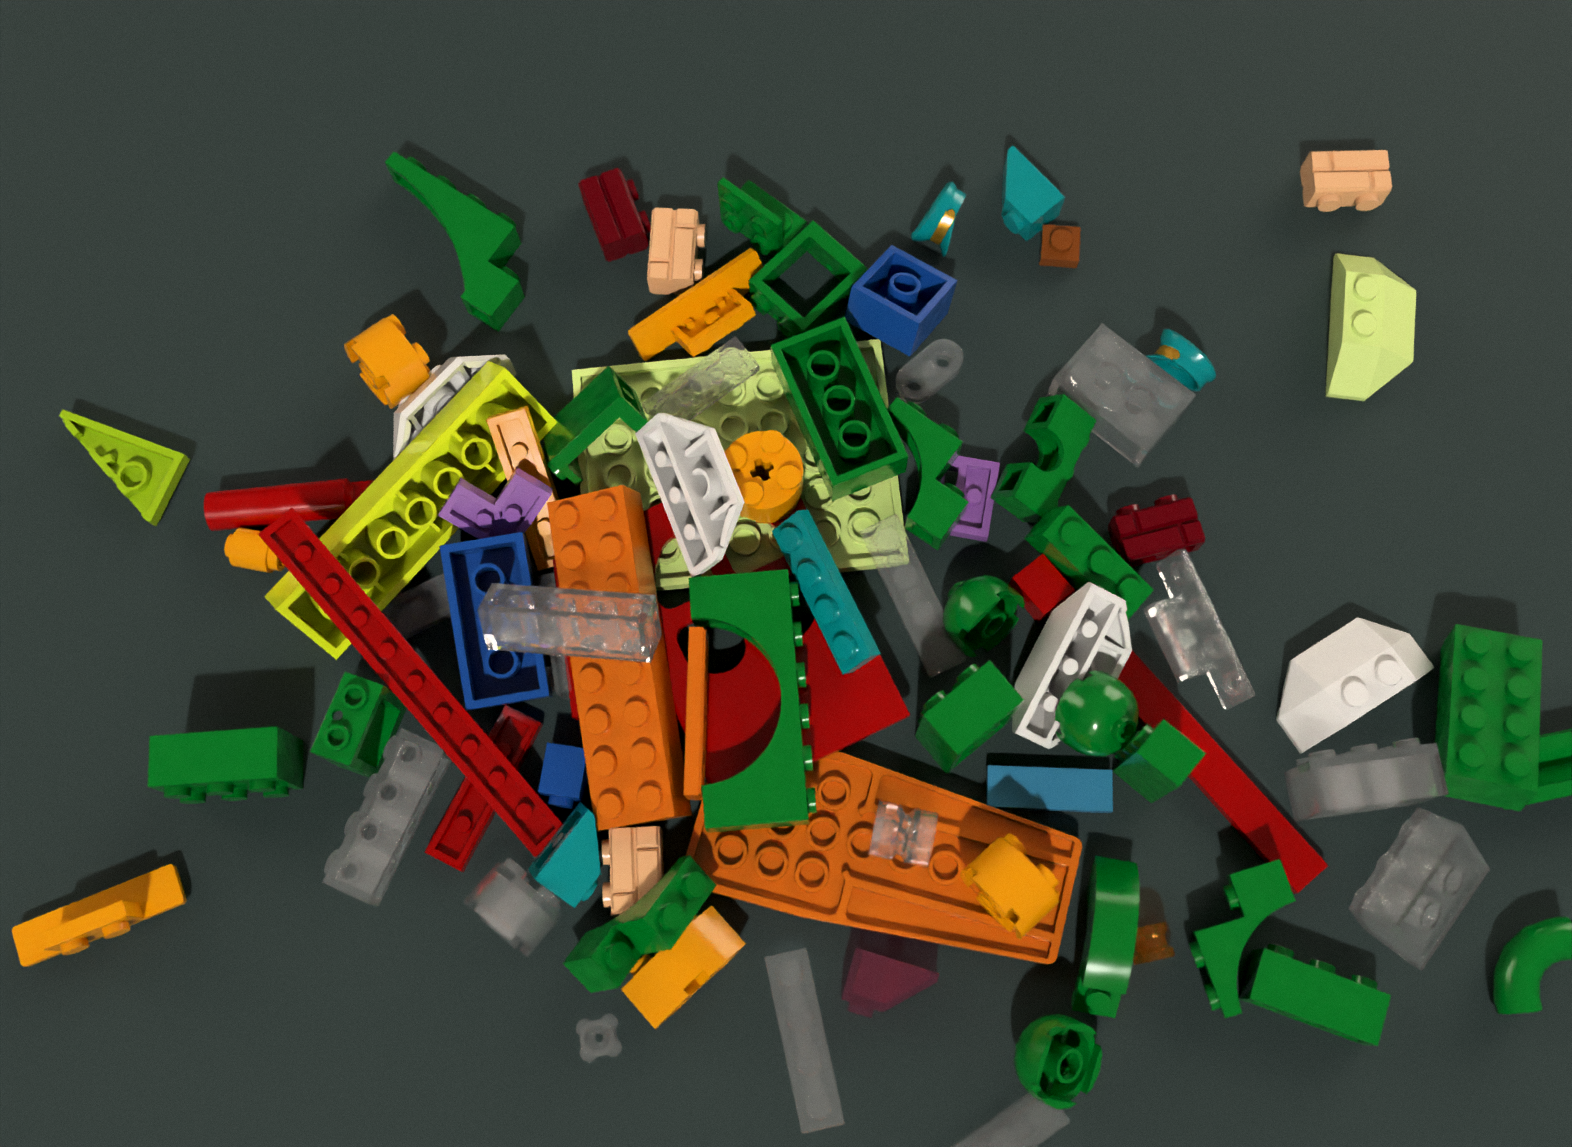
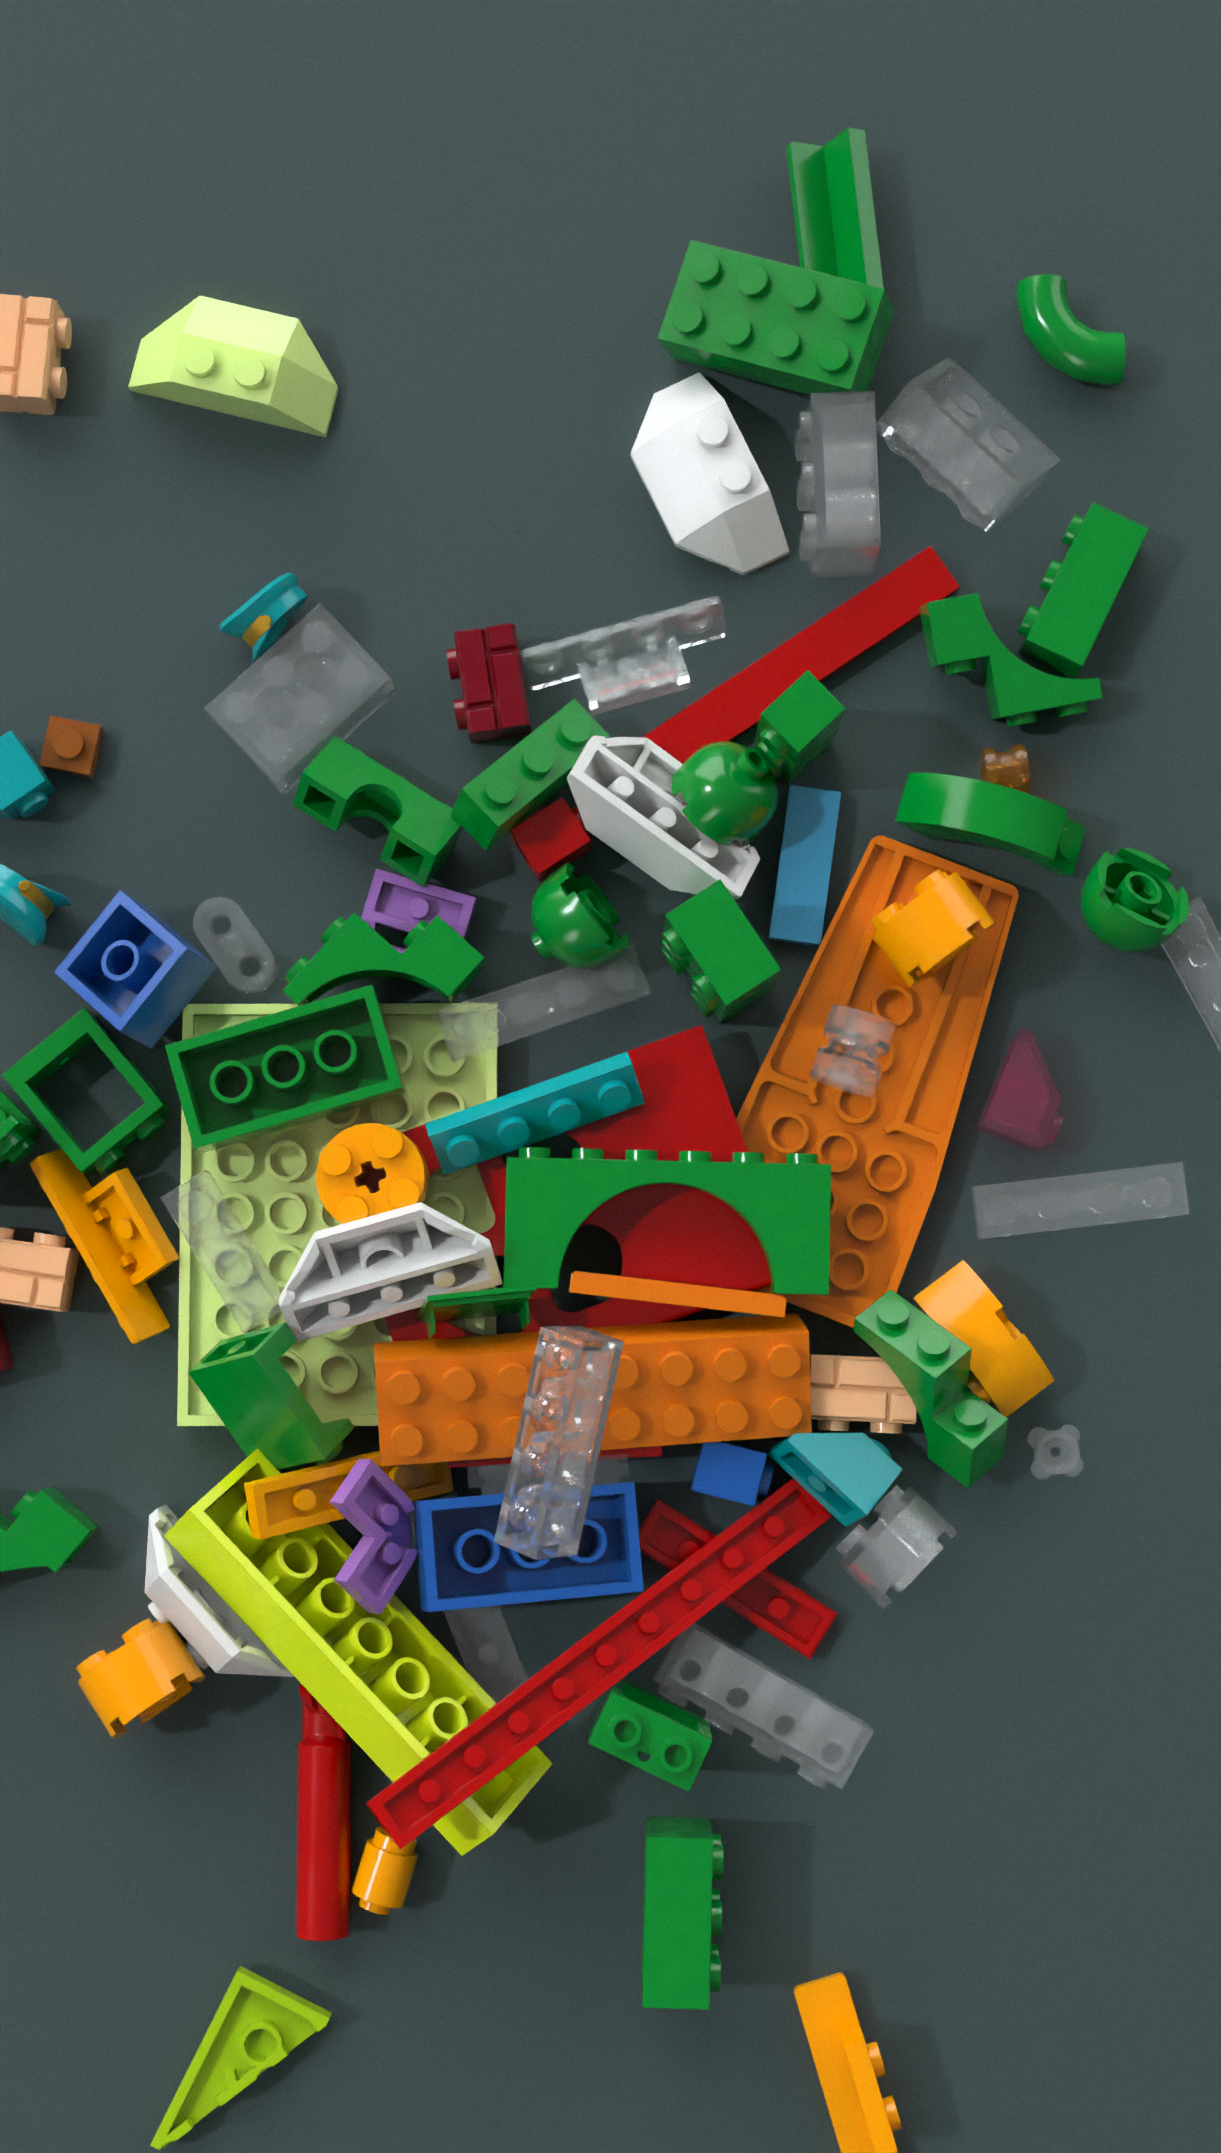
camera: 85 degrees left, 10 degrees up
(673, 559) = (476, 1305): none -> green piece

